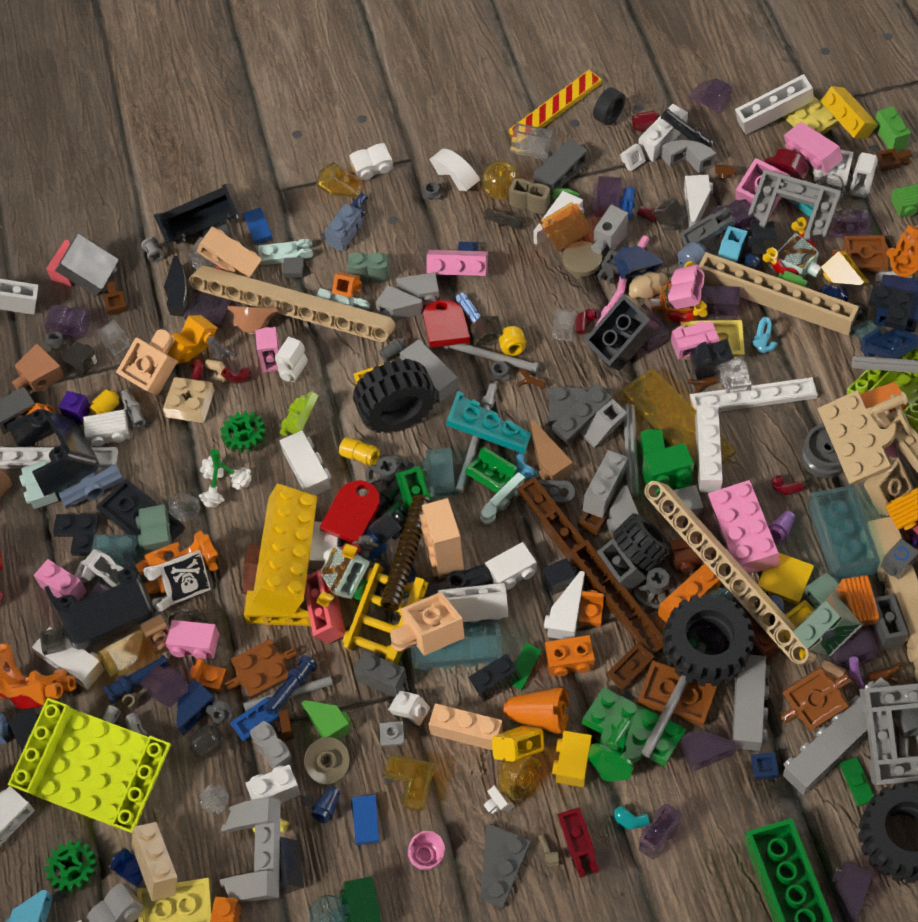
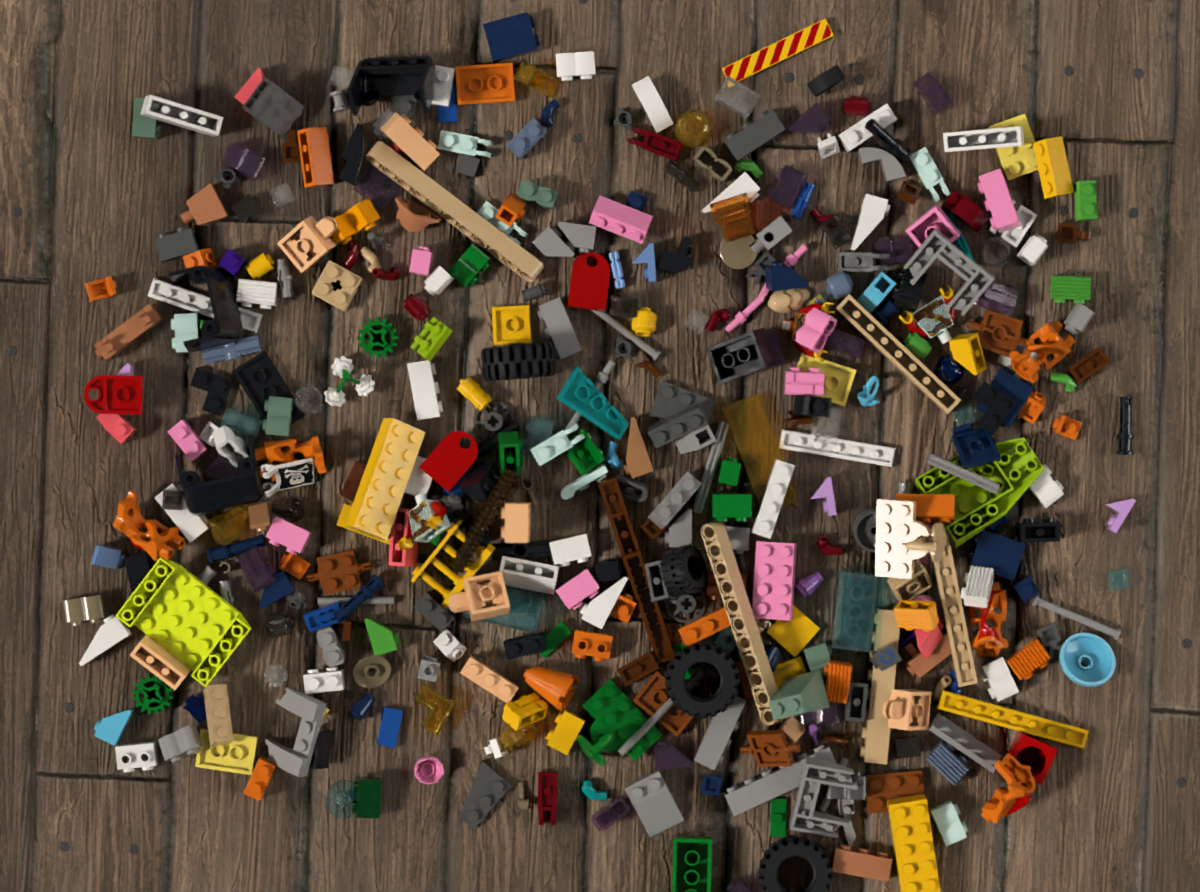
camera: 10 degrees right, 30 degrees up
(72, 824) = (160, 662): none -> light nougat brick
(139, 296) = (315, 157): none -> orange brick
(149, 228) = (340, 77): none -> clear brick
(250, 213) = (443, 85): none -> white plate
(276, 393) = (417, 307): none -> dark red brick
(290, 199) = (485, 84): none -> orange plate
(303, 158) = (511, 37): none -> dark blue brick
(320, 343) = (469, 266): none -> green brick
(460, 466) = (555, 445): none -> light aqua hinge
(468, 200) = (657, 144): none -> dark red hinge
(495, 290) = (647, 257): none -> medium blue slope
(524, 284) = (678, 262): none -> black brick
(533, 602) = (578, 589): none -> bright pink brick
(608, 143) = (811, 122): none -> clear purple slope
(706, 807) = (653, 803): none -> light grey slope
(734, 152) = (928, 172): none -> light aqua hinge
(763, 436) = (826, 490): none -> lavender slope

